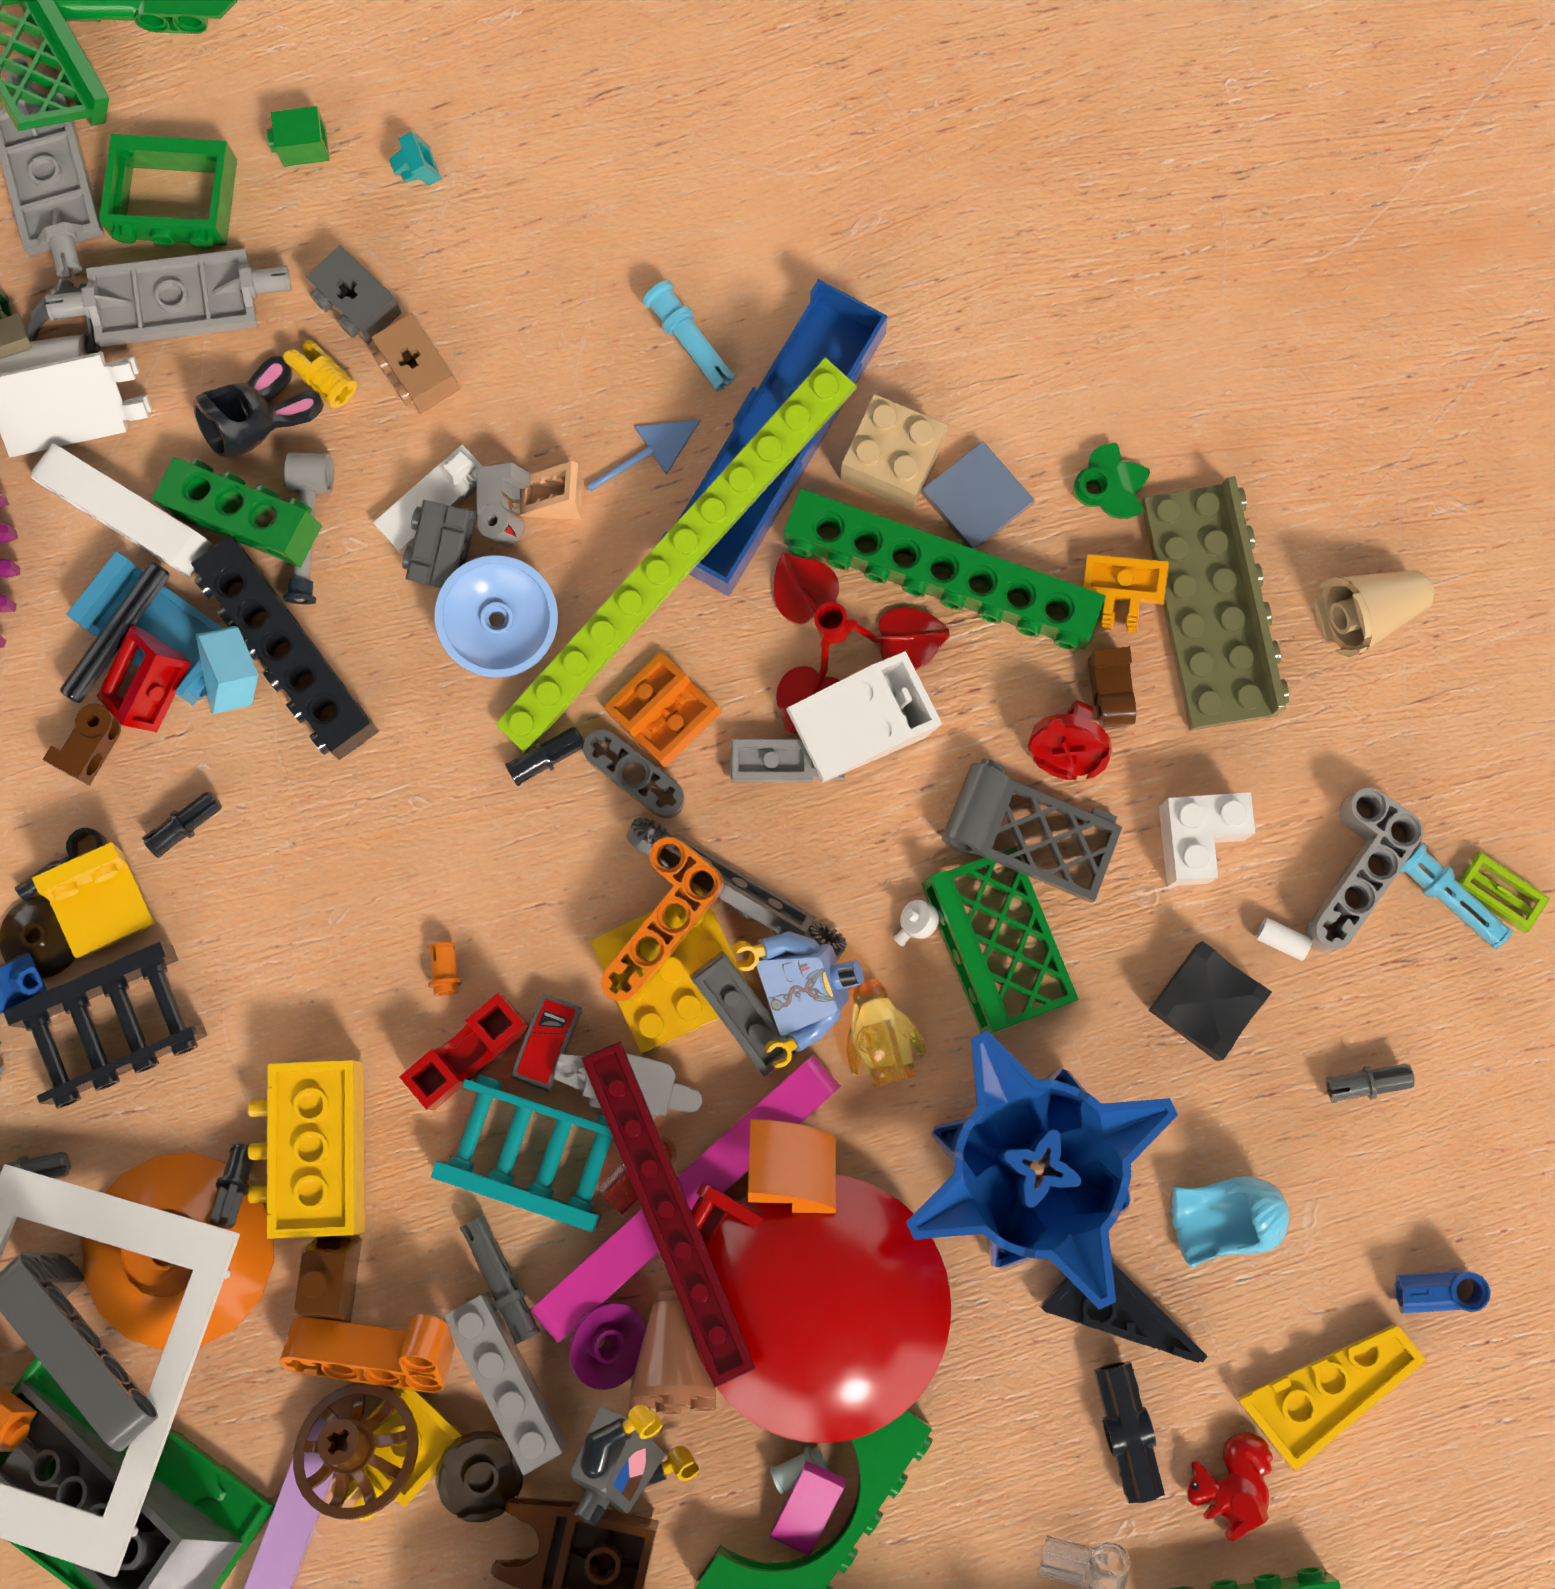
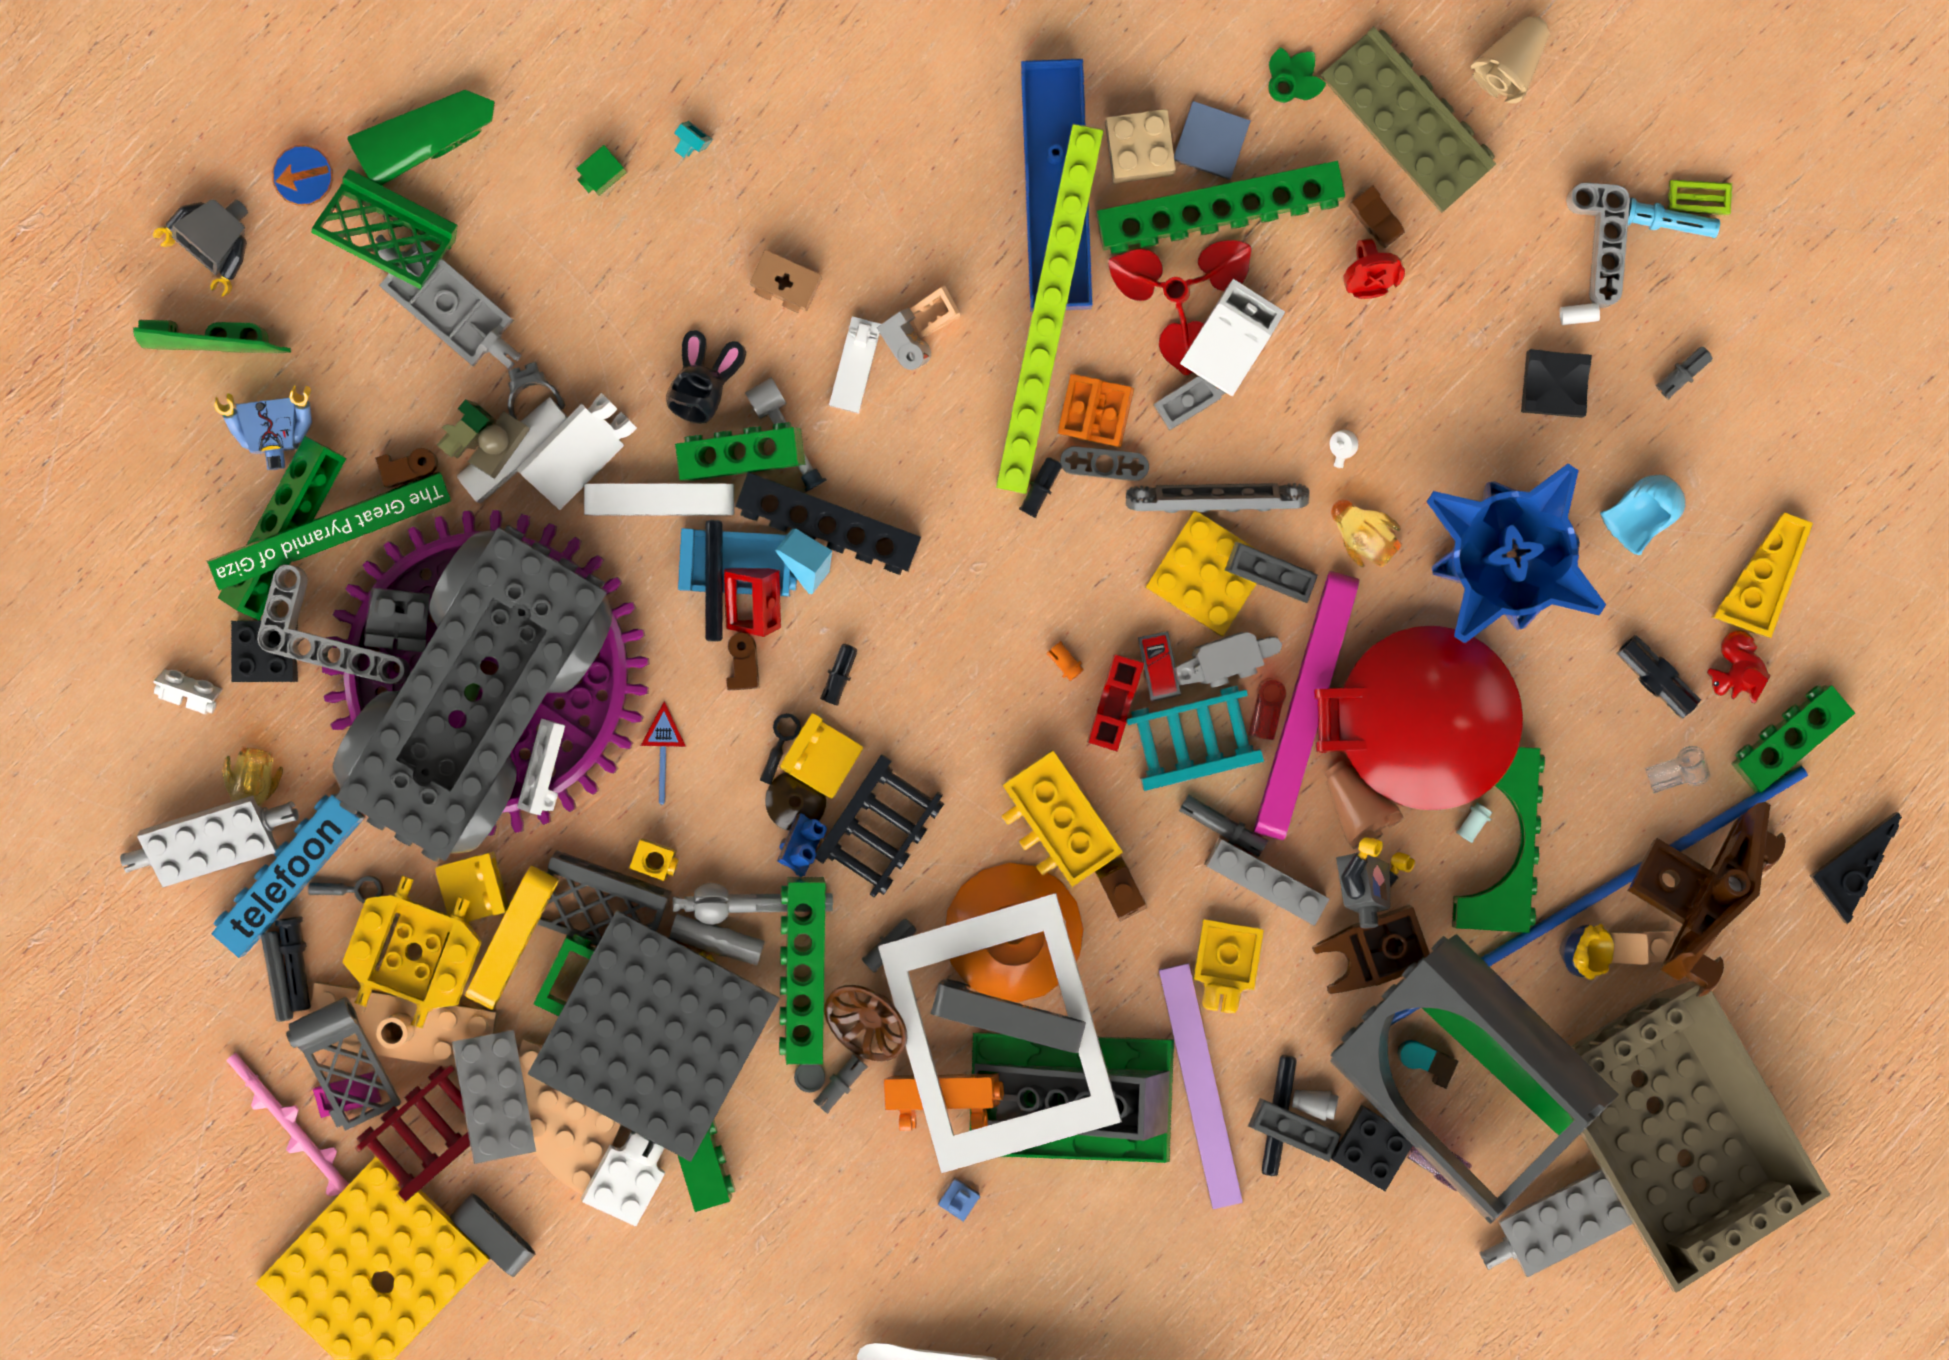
camera: 30 degrees left, 10 degrees up
(167, 154) = (525, 236): green window -> none
(170, 297) = (594, 336): light grey plate -> none
(231, 1187) = (1025, 871): black axle -> none
(321, 373) = (732, 325): yellow hinge -> none
(342, 277) = (730, 255): dark grey brick -> none
(350, 1446) = (1203, 974): reddish brown wheel -> none
(371, 1354) = (1176, 915): orange beam -> none
(439, 542) = (886, 393): dark grey brick -> none
(478, 1476) = (1285, 945): dark brown tile -> none
(491, 587) = (975, 412): light blue dish -> none
(618, 1356) = (1315, 822): magenta dish -> none
(657, 925) = (1187, 552): orange beam -> none
(662, 441) = (980, 230): medium blue piece -> none
(668, 1215) = (1305, 719): dark red tile -> none
(678, 321) = (939, 142): medium azure pin -> none
(792, 1166) = (1362, 645): orange slope -> none
(802, 987) = (1299, 533): medium blue torso -> none
(807, 1508) = (1493, 840): tile -> none
(972, 962) = (1392, 450): green fence -> none
(981, 810) = (1341, 344): dark grey piece -> none
(1126, 581) = (1342, 140): light orange hinge -> none
(1130, 1317) = (1620, 608): black wing -> none
(1193, 827) = (1481, 280): white brick -> none
(1438, 1291) = (1797, 477): blue piece -> none

